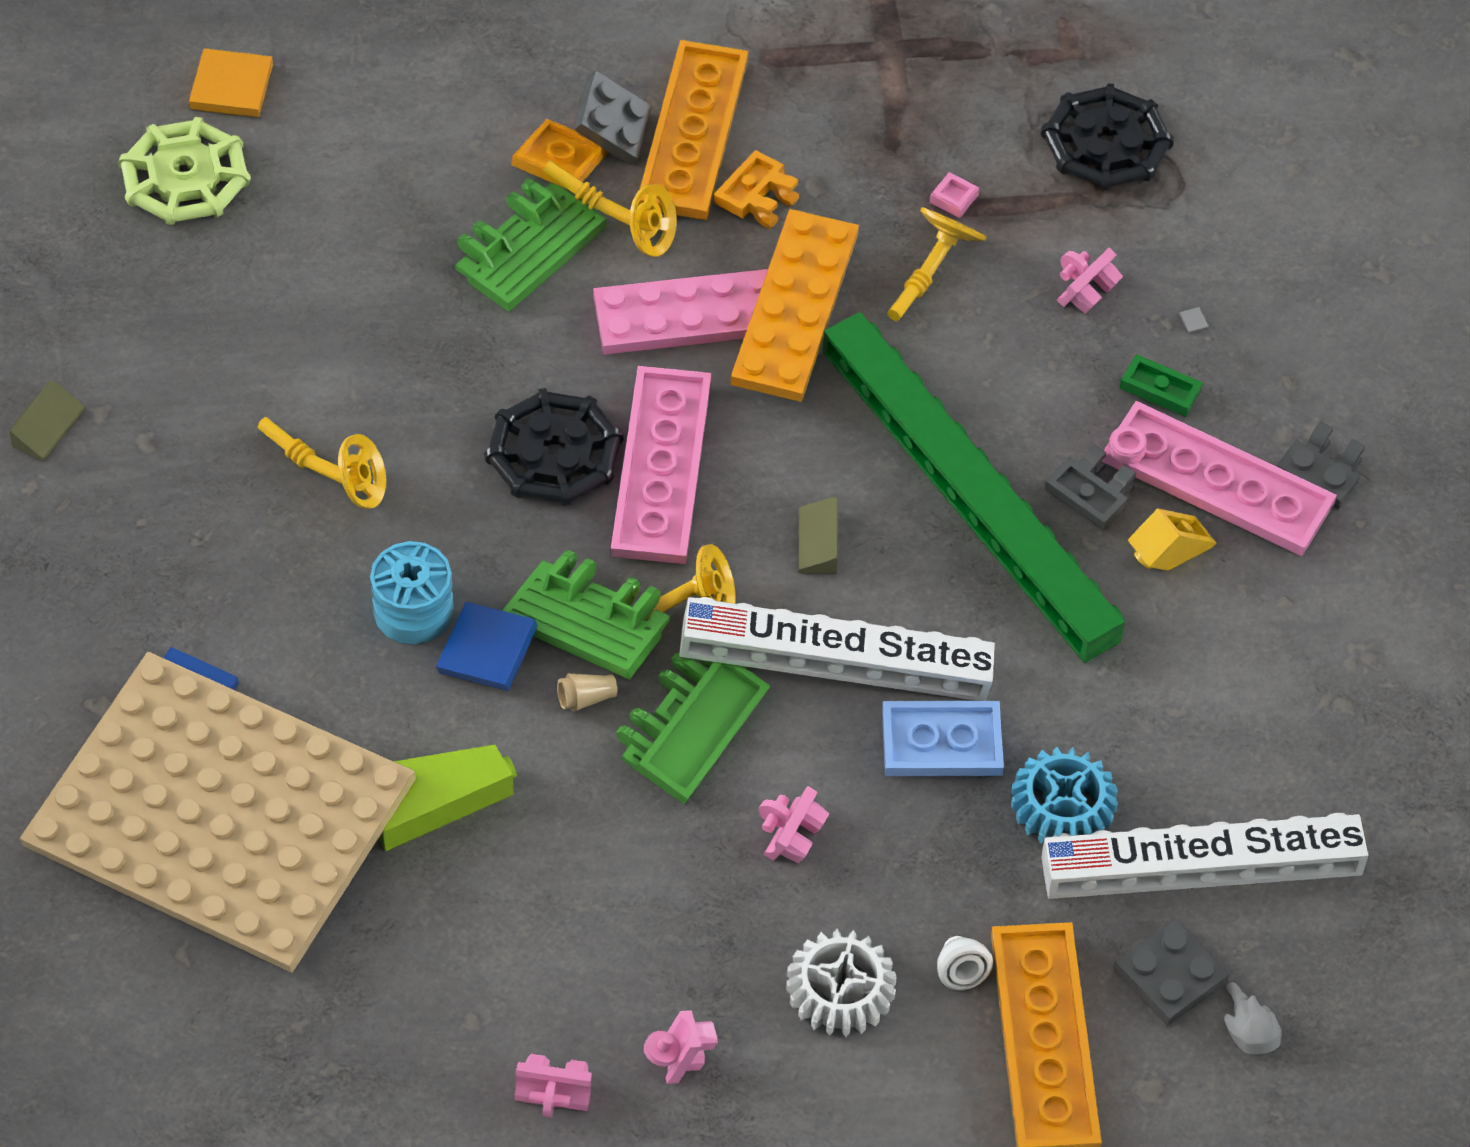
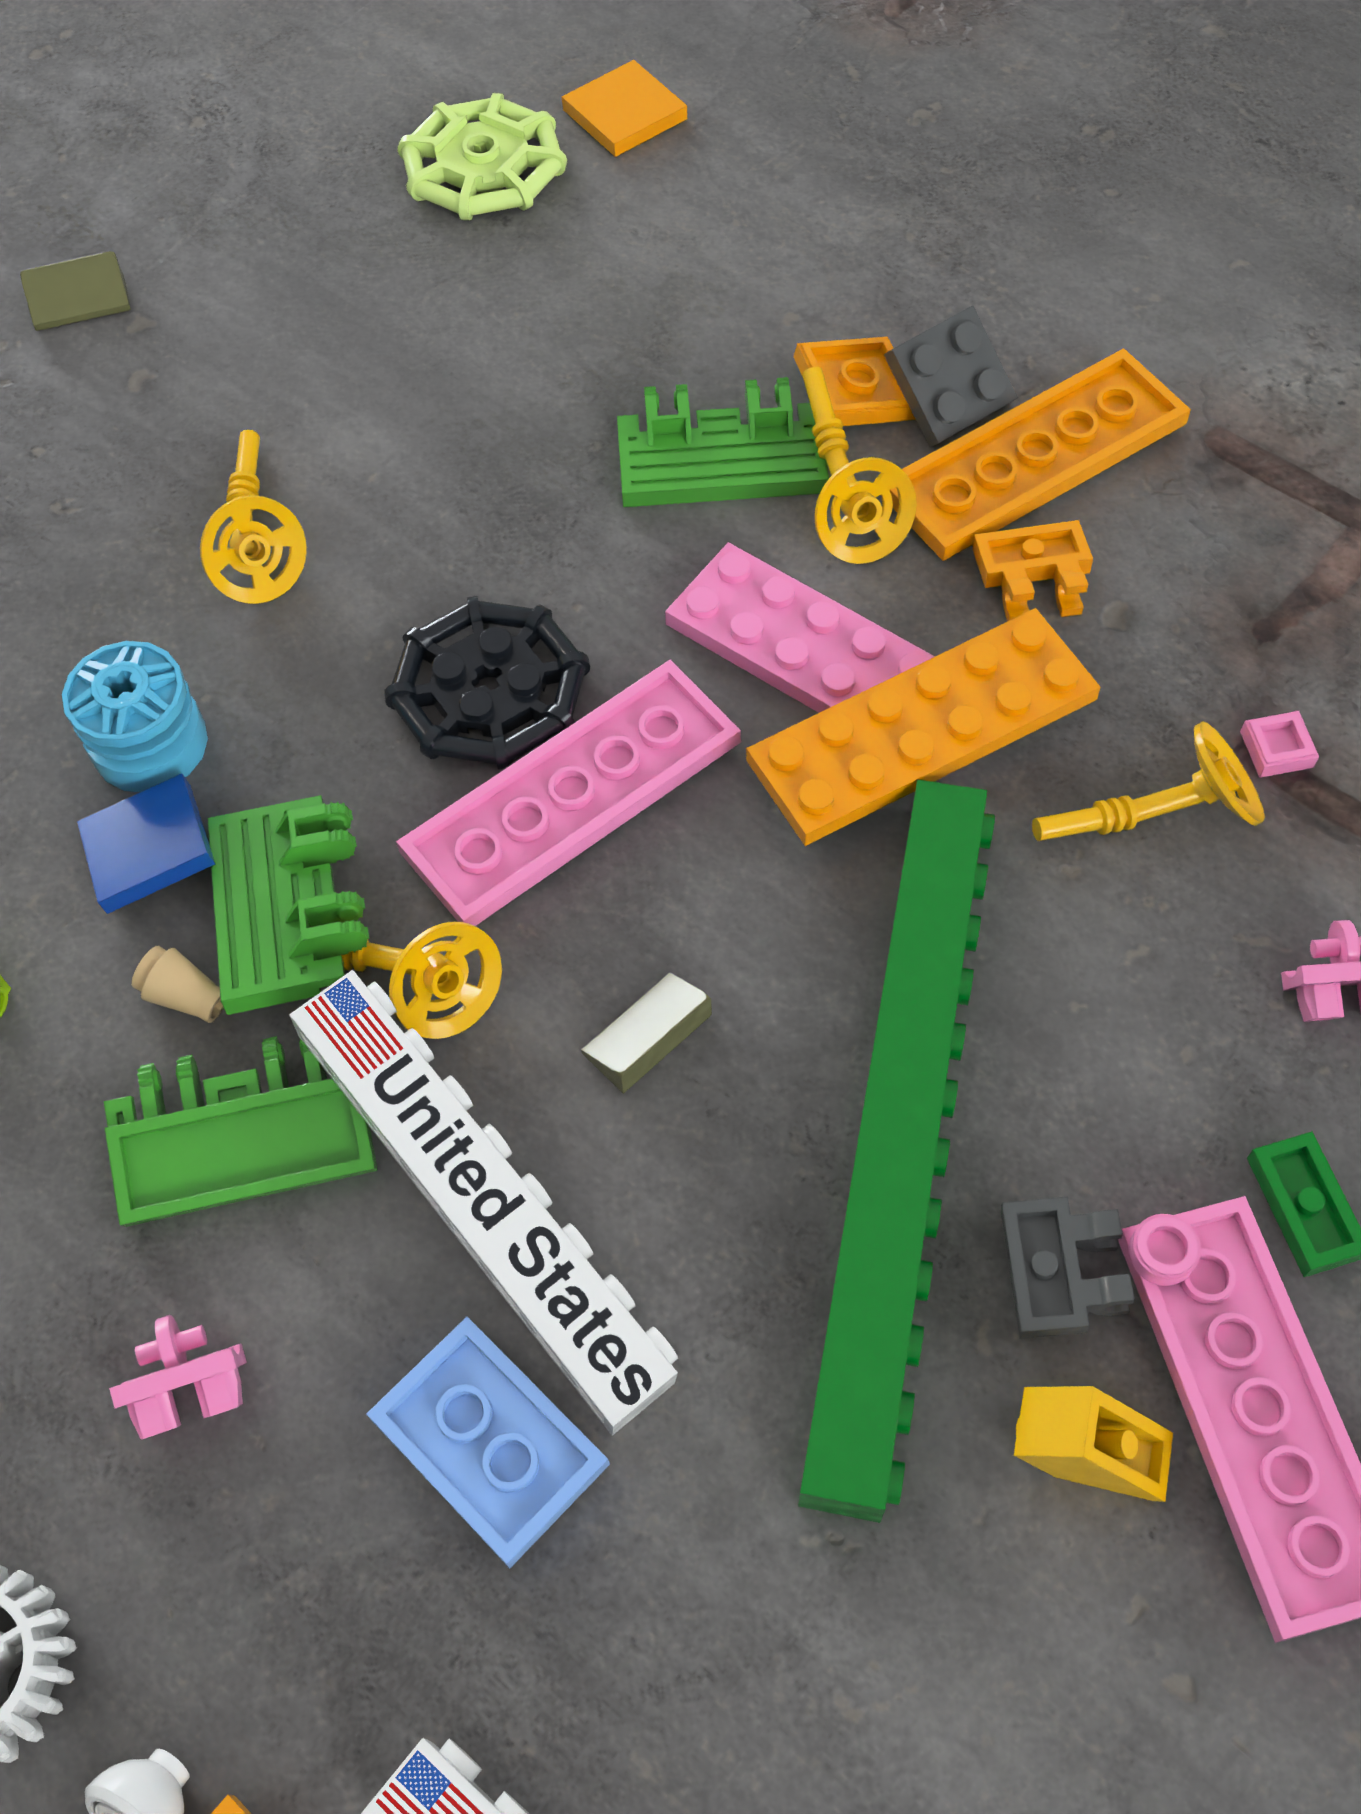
camera: 50 degrees right, 5 degrees up
(1063, 783) = (536, 1731): medium azure gear -> none

